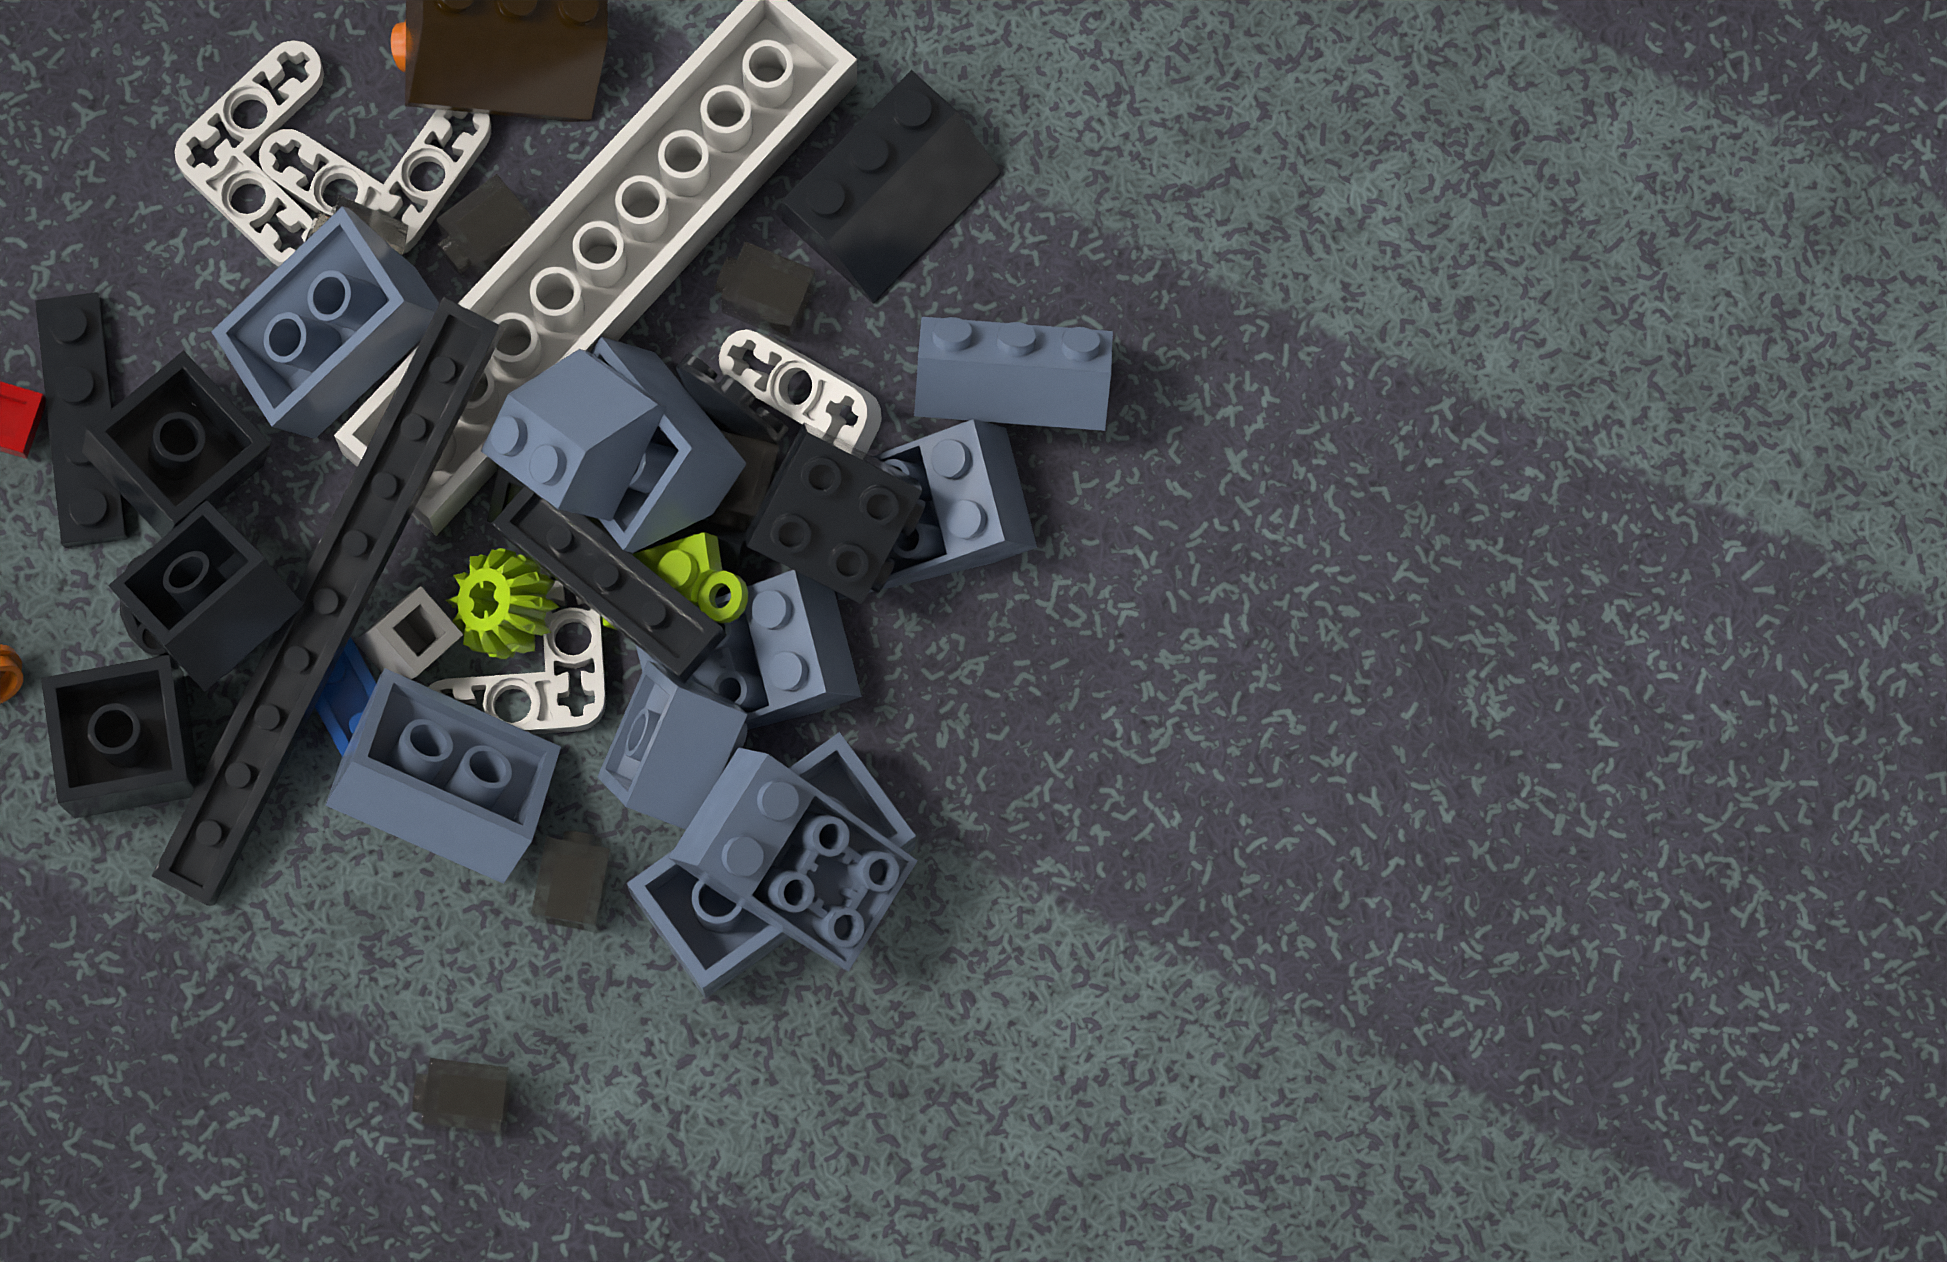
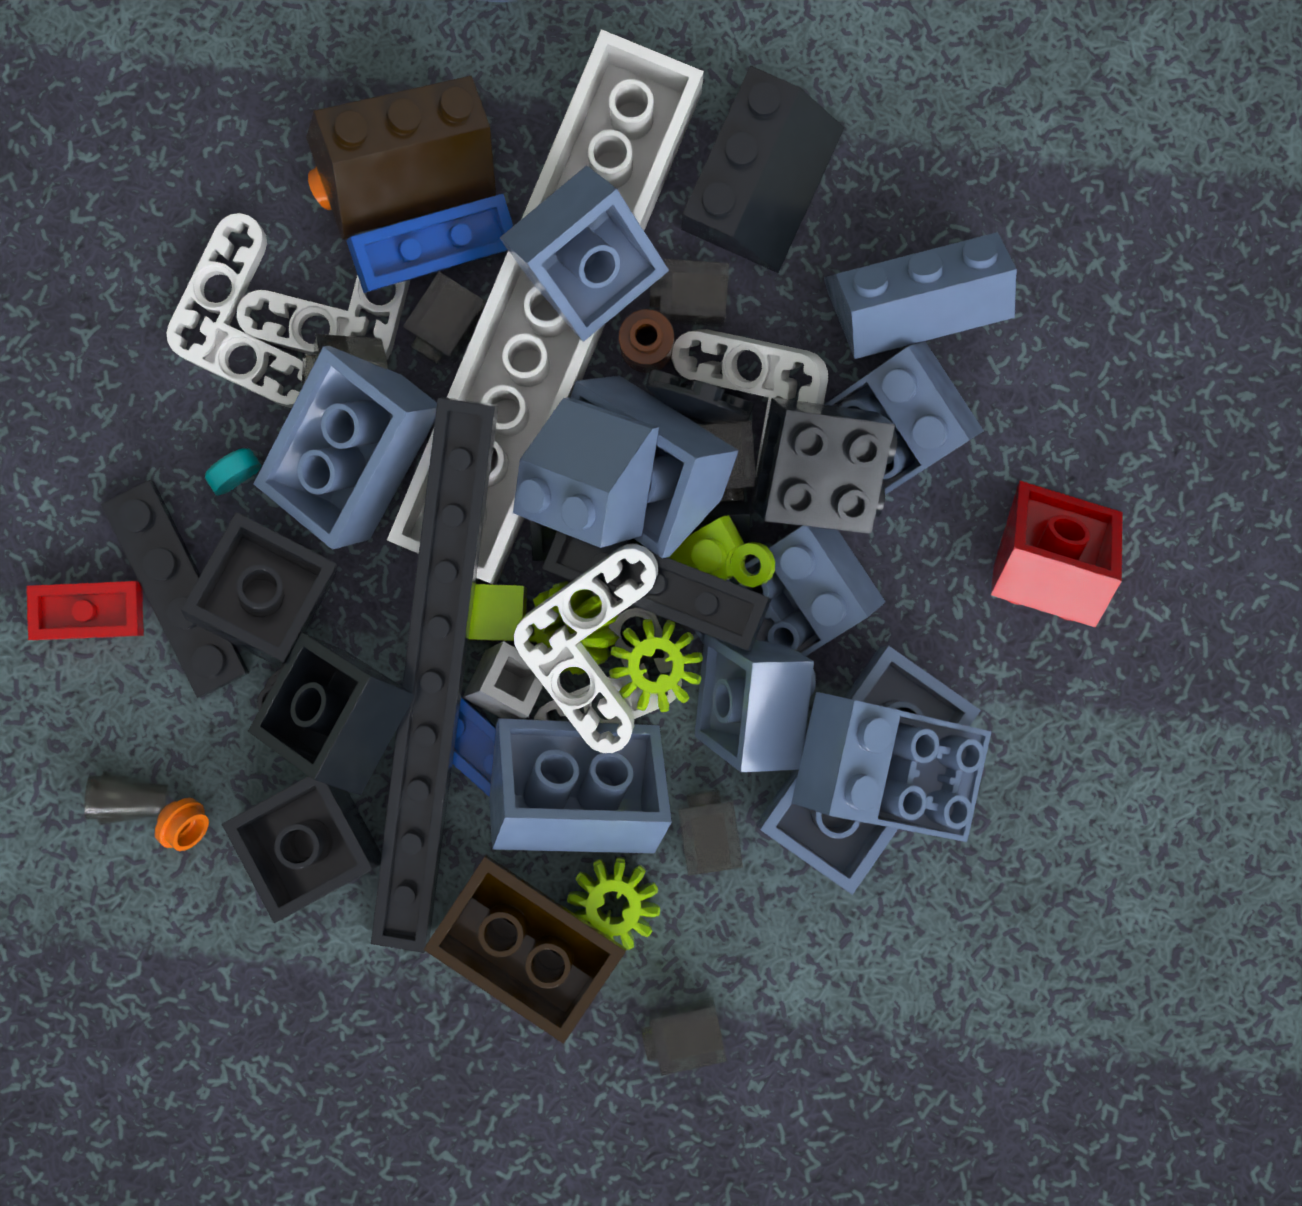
camera: 15 degrees left, 10 degrees up
(192, 312) = (232, 470): none -> teal tile
(323, 928) = (525, 949): none -> dark brown slope
(426, 559) = (497, 611): none -> lime brick
(454, 938) = (622, 885): none -> lime gear
(487, 617) = (570, 652): none -> white beam
(500, 142) = (430, 243): none -> blue plate
(578, 650) = (647, 648): none -> lime gear
(657, 204) = (585, 252): none -> sand blue slope
(702, 339) = (646, 357): none -> reddish brown brick
(1070, 708) = (1059, 555): none -> red slope

